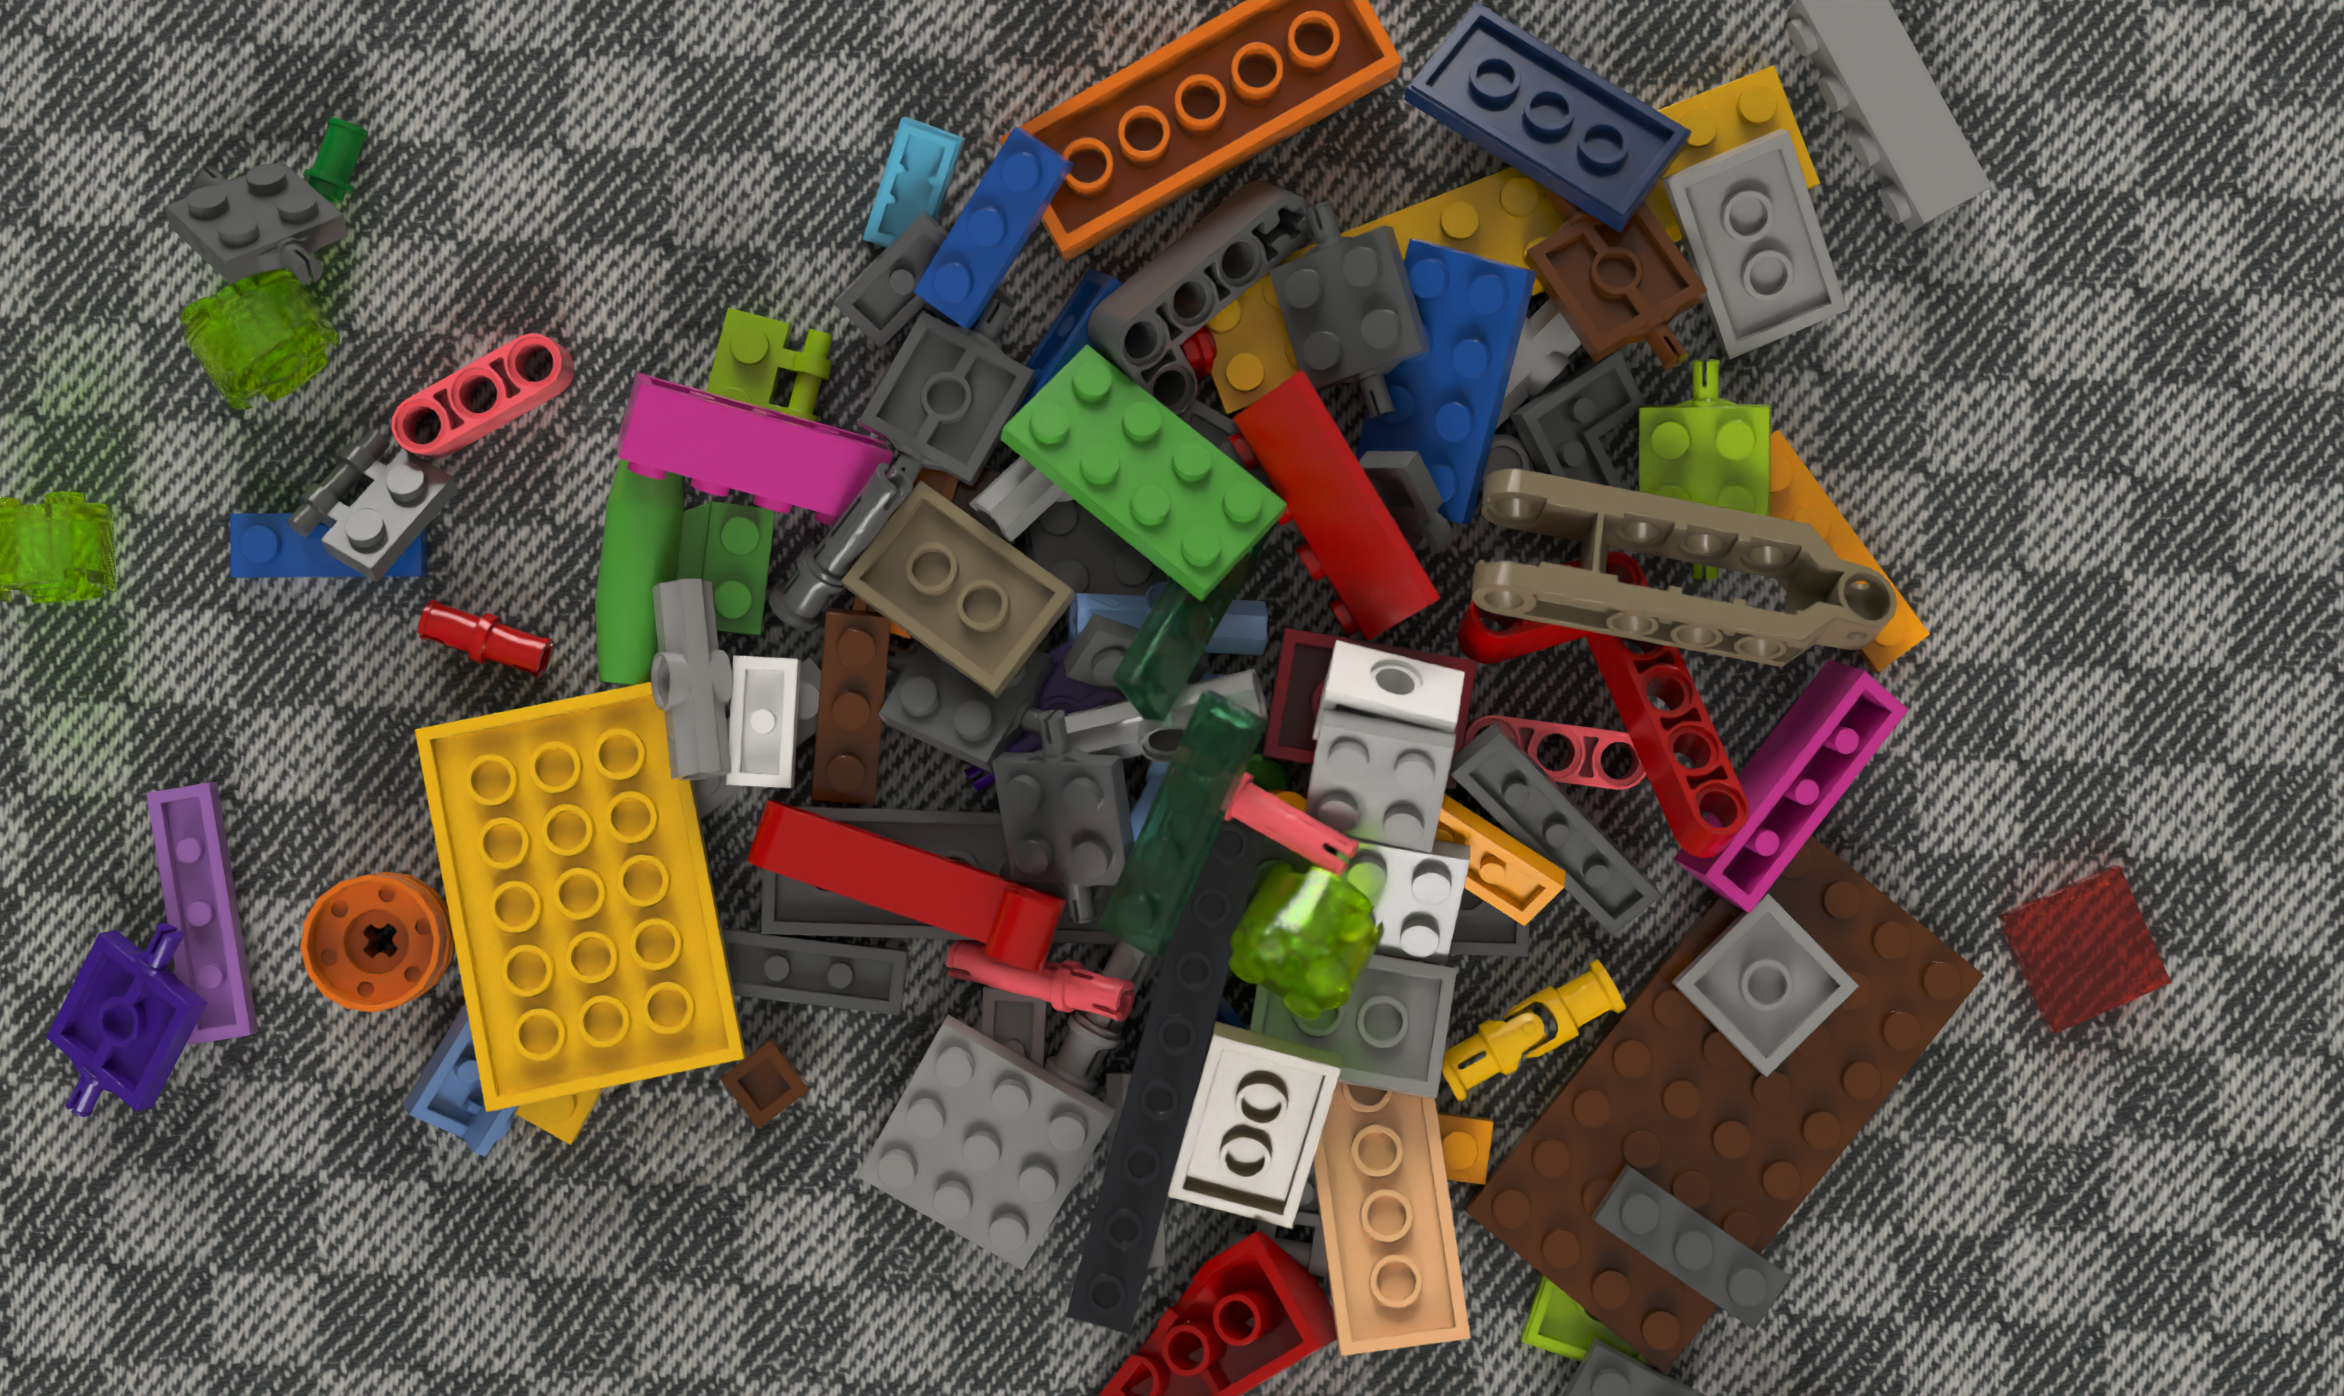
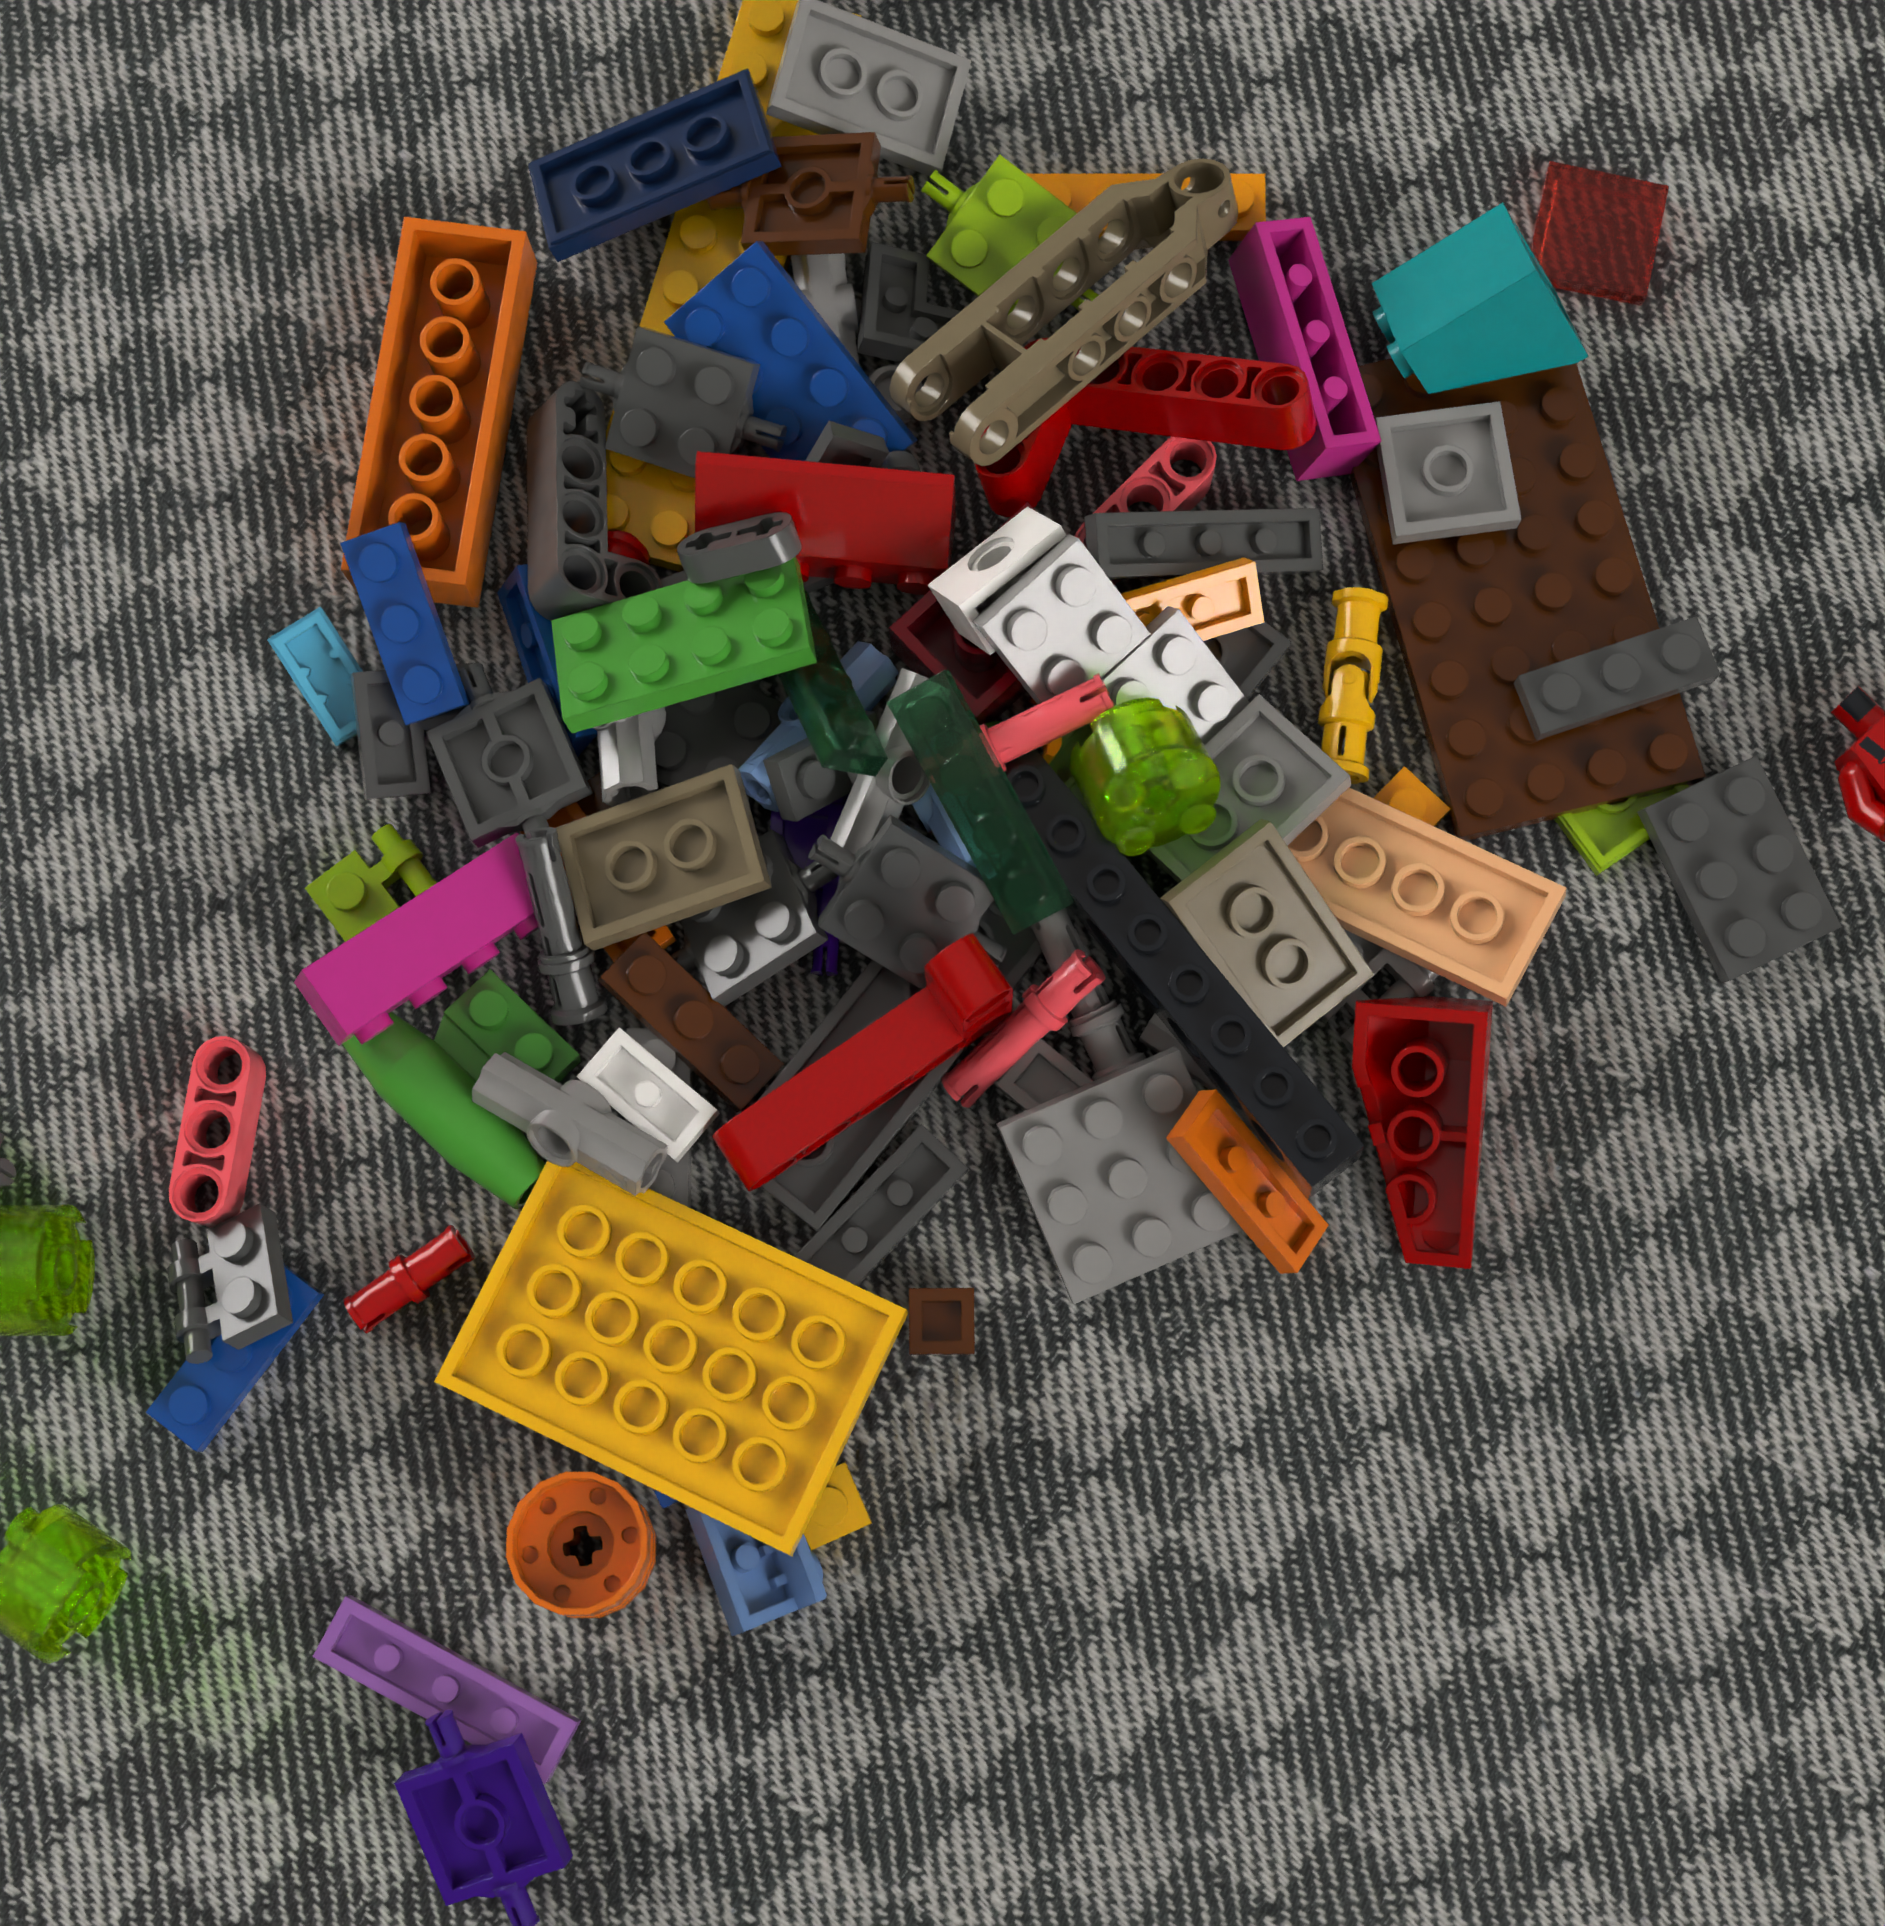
camera: 50 degrees left, 10 degrees down
(1048, 1247) = (1247, 1181): none -> orange plate
(1252, 462) = (739, 547): none -> dark grey beam
(1926, 907) = (1475, 309): none -> teal slope

